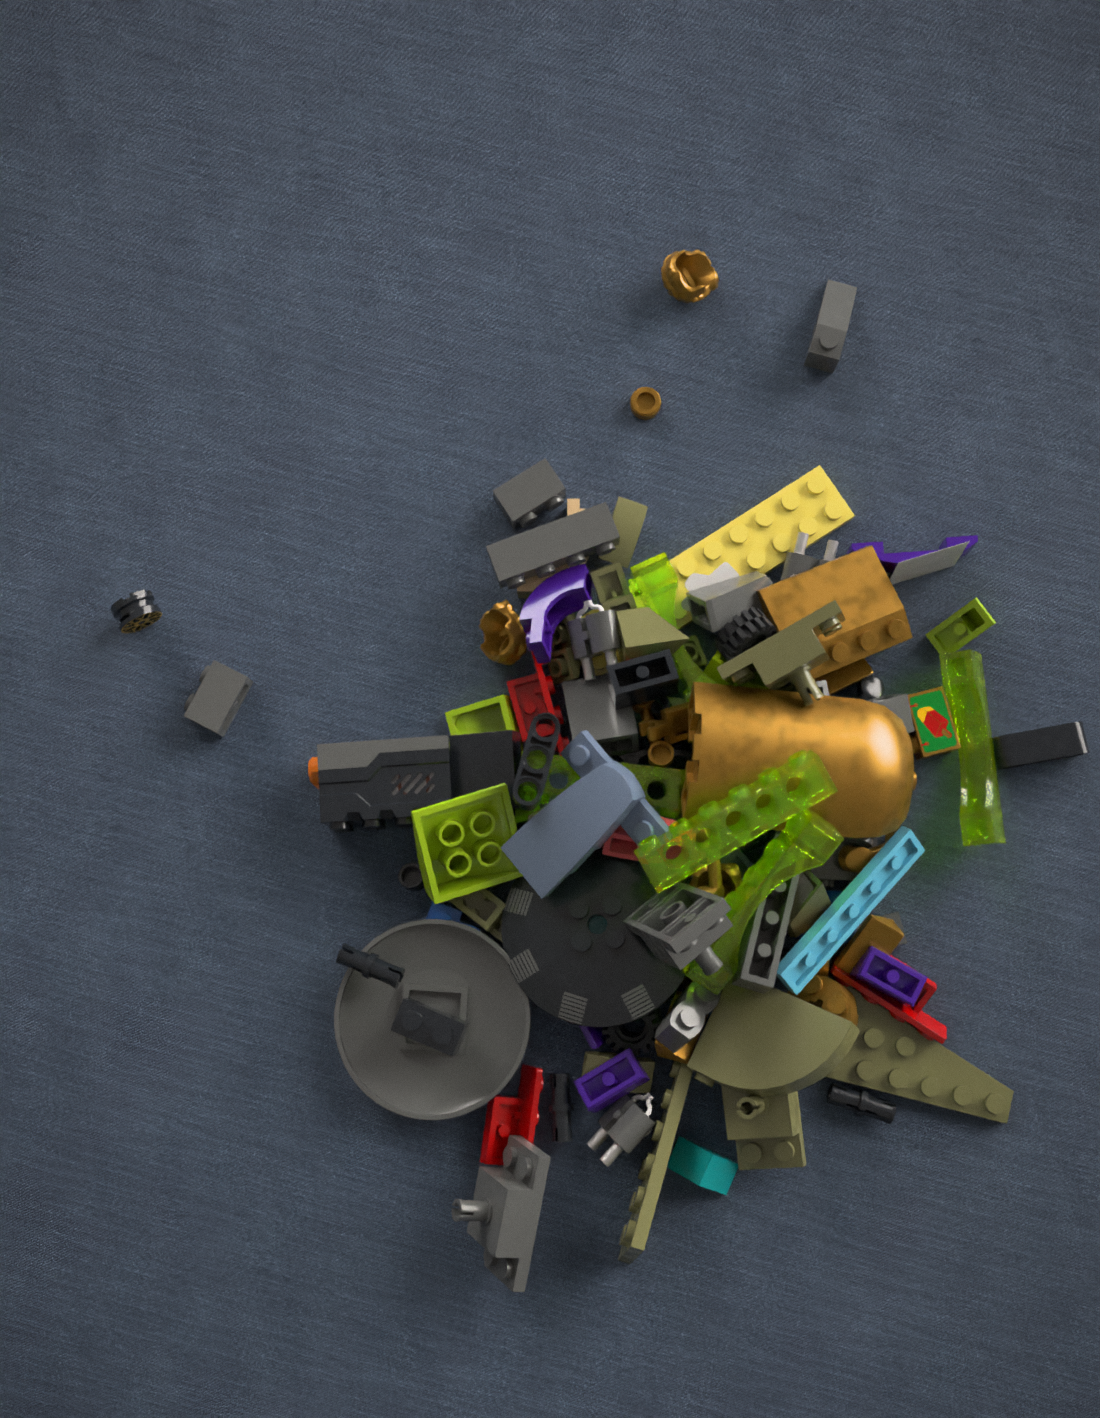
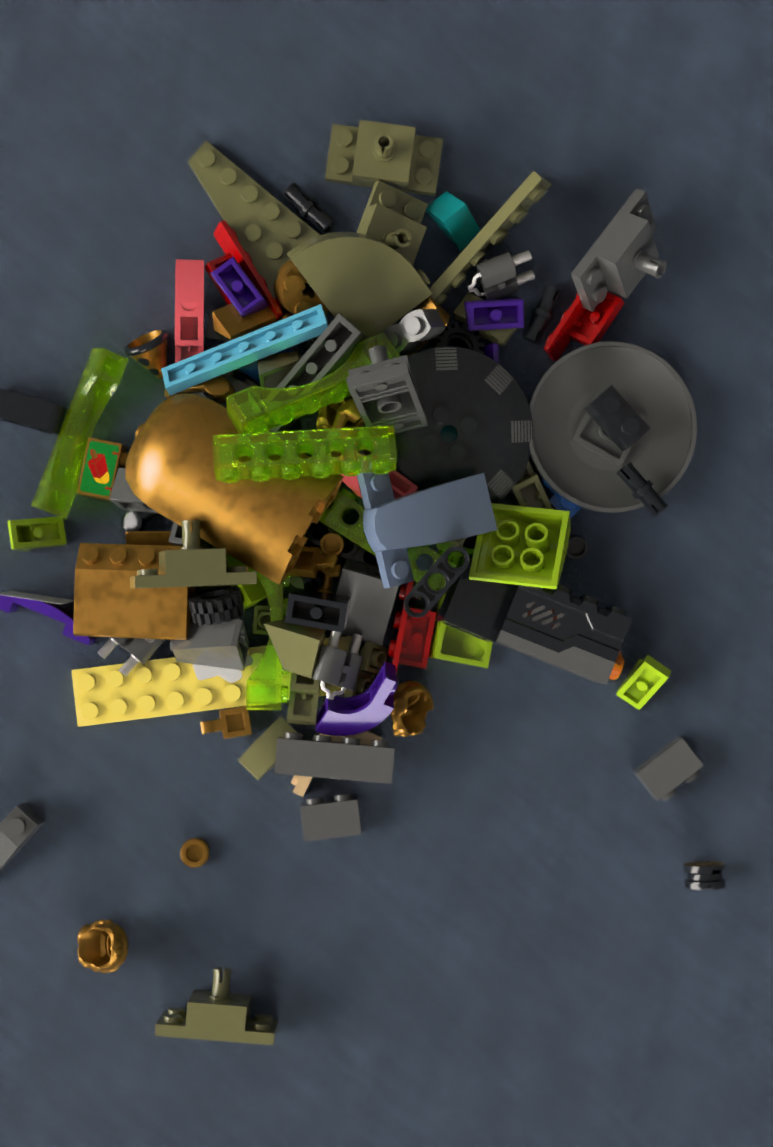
camera: 160 degrees left, 5 degrees up
(281, 772) = (643, 681): none -> lime slope
(545, 260) = (218, 1016): none -> olive brick
(673, 538) = (232, 723): none -> pearl gold plate
(809, 1199) = (385, 154): none -> olive brick
(929, 930) = (189, 308): none -> coral slope
(946, 868) = (150, 351): none -> pearl gold hat

